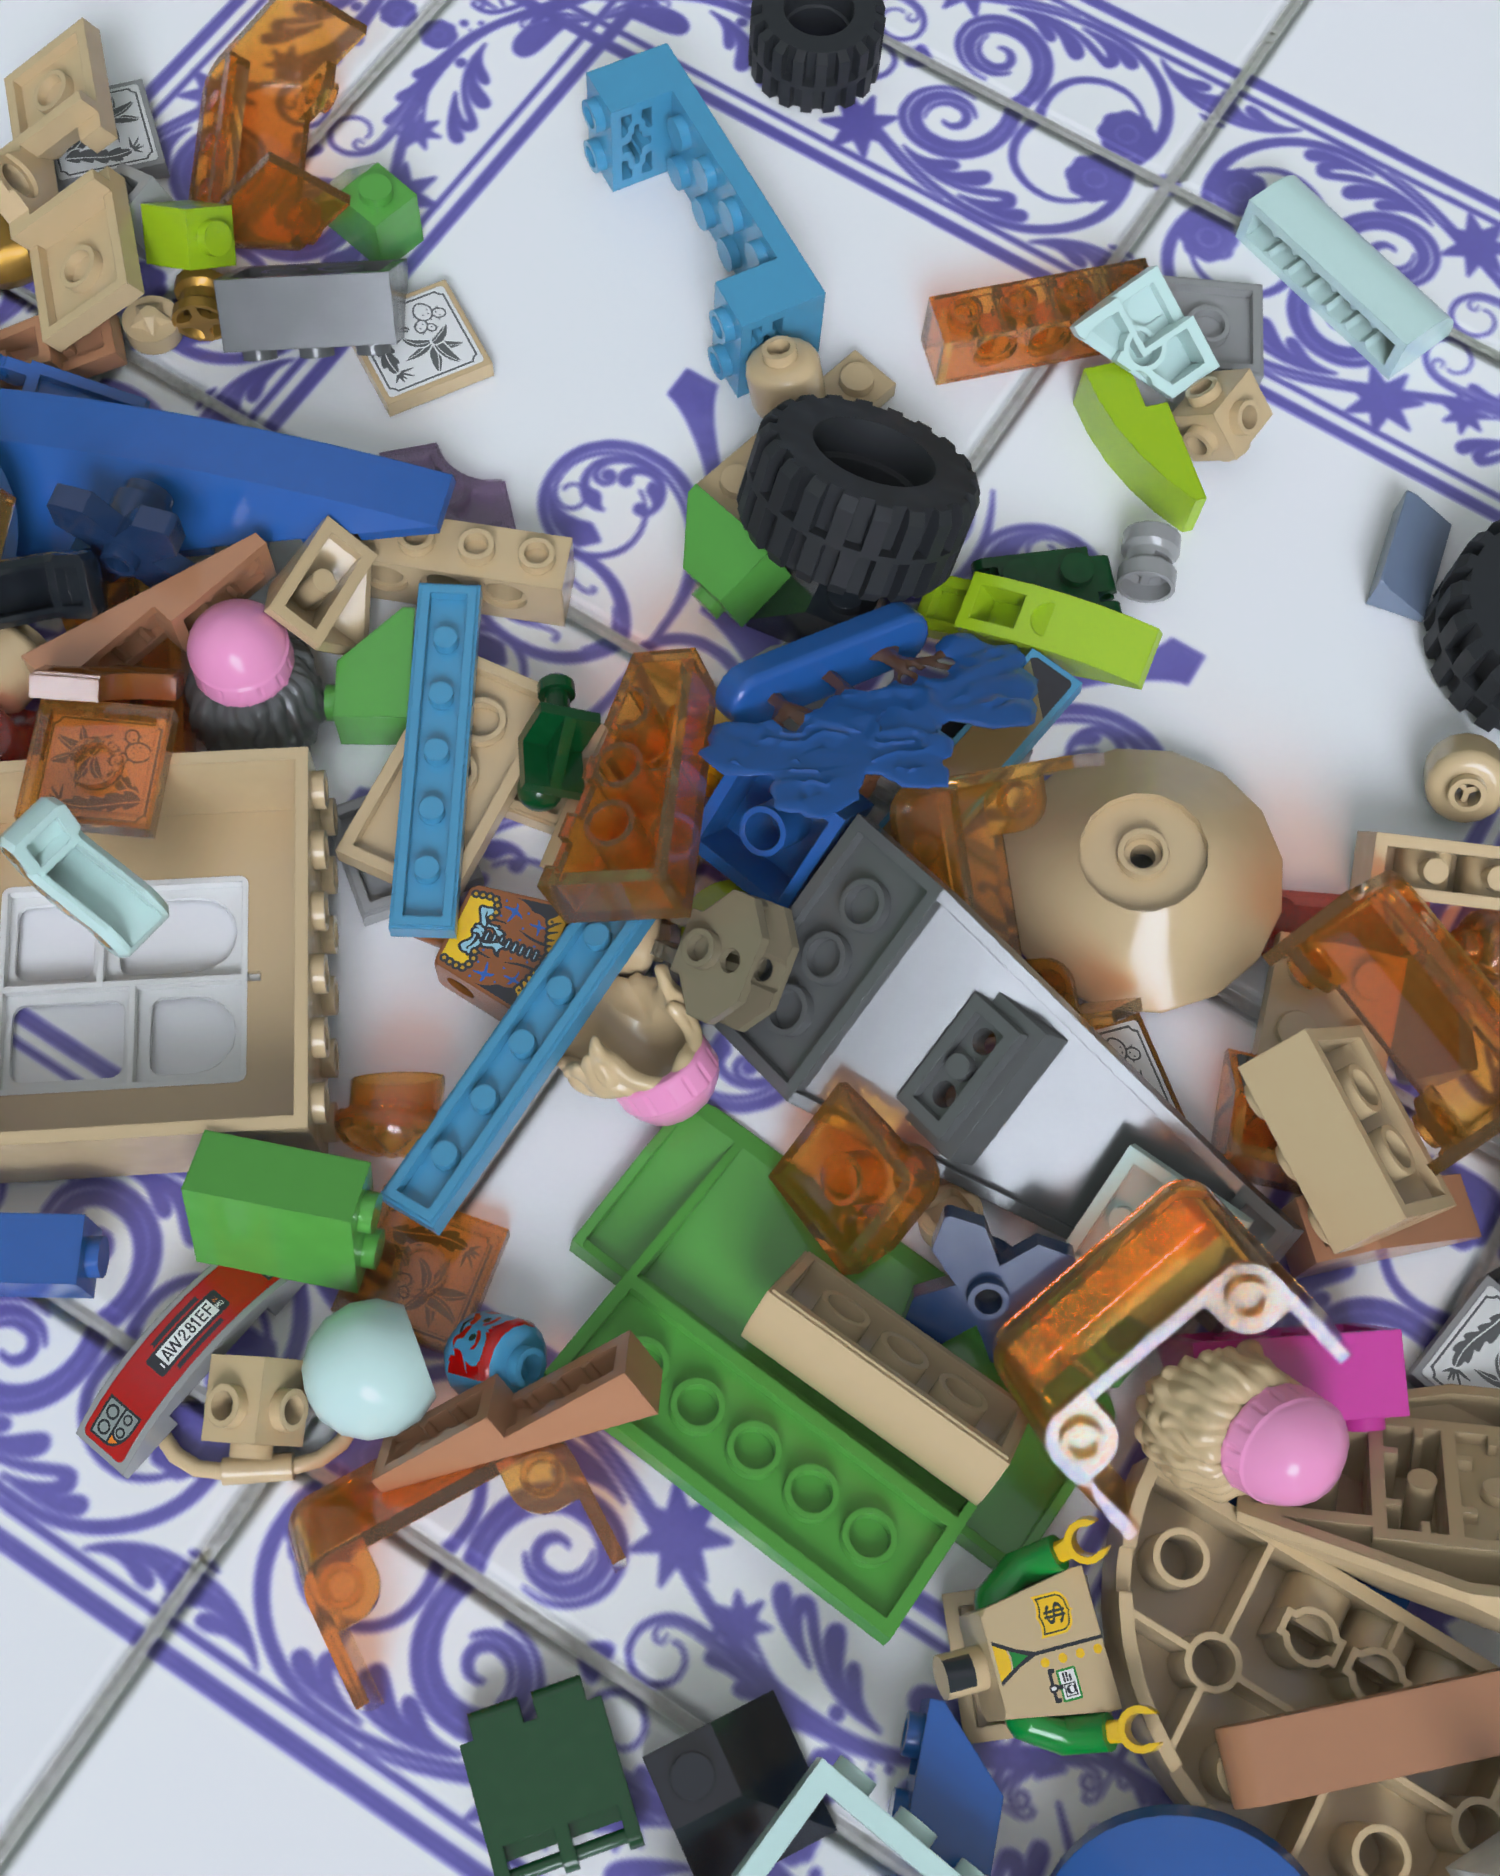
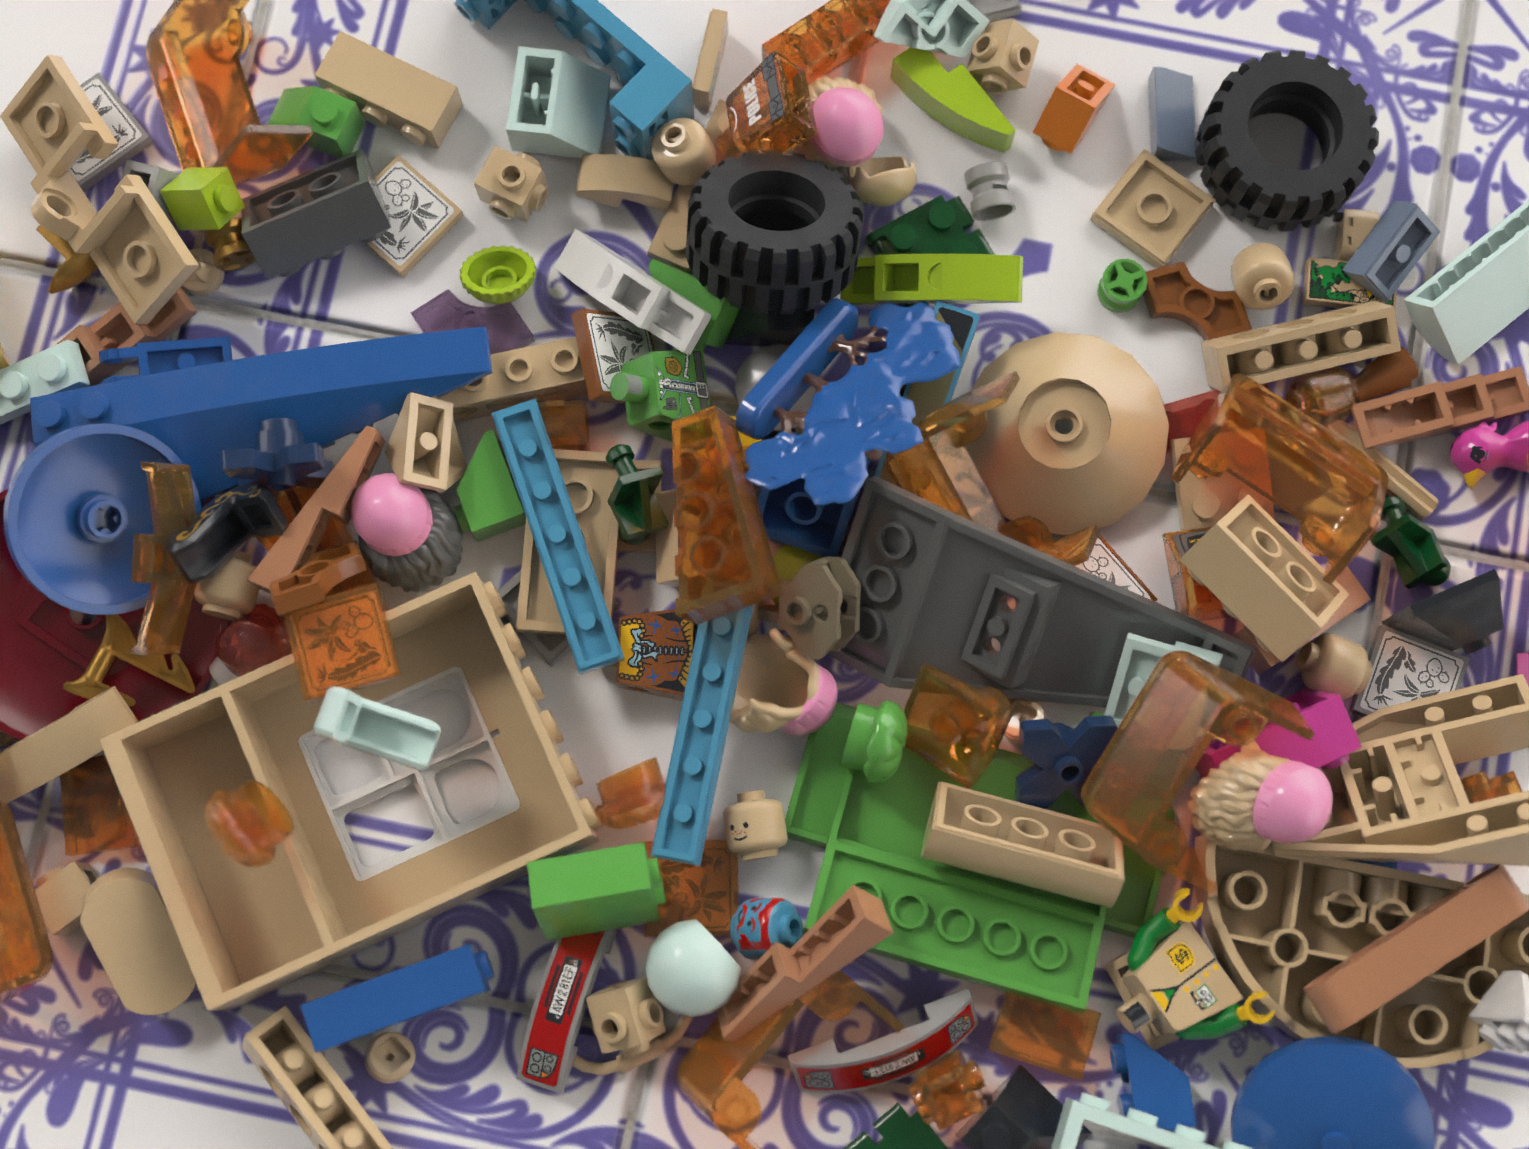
camera: 15 degrees left, 10 degrees up
(469, 208) = (390, 90): none -> tan brick
(502, 445) = (498, 274): none -> lime hat
(510, 633) = (566, 424): none -> clear orange brick
(538, 1218) = (755, 826): none -> tan head
(563, 350) = (512, 184): none -> tan brick
(593, 1601) = (890, 1057): none -> slope
(605, 582) = (604, 345): none -> tile
(639, 618) = (662, 390): none -> bright green torso
(652, 284) = (556, 104): none -> light aqua slope
(654, 1681) = (948, 1090): none -> clear orange brick
(659, 515) = (632, 292): none -> white slope
(689, 387) = (620, 177): none -> tan slope
(741, 1162) = (876, 740): none -> bright green piece
(822, 1659) = (1044, 1035): none -> clear orange plate
(861, 302) = (710, 59): none -> tan tile
(910, 362) = (769, 110): none -> clear orange torso
(988, 412) = (846, 123): none -> bright pink hair
(1016, 505) = (883, 180): none -> tan hair
(1285, 506) = (1072, 109): none -> orange slope
(1286, 715) = (1126, 276): none -> bright green wheel
(1346, 768) = (1178, 295): none -> dark orange tile
(1348, 658) = (1152, 209): none -> tan tile
(1405, 1297) = (1334, 665): none -> tan head

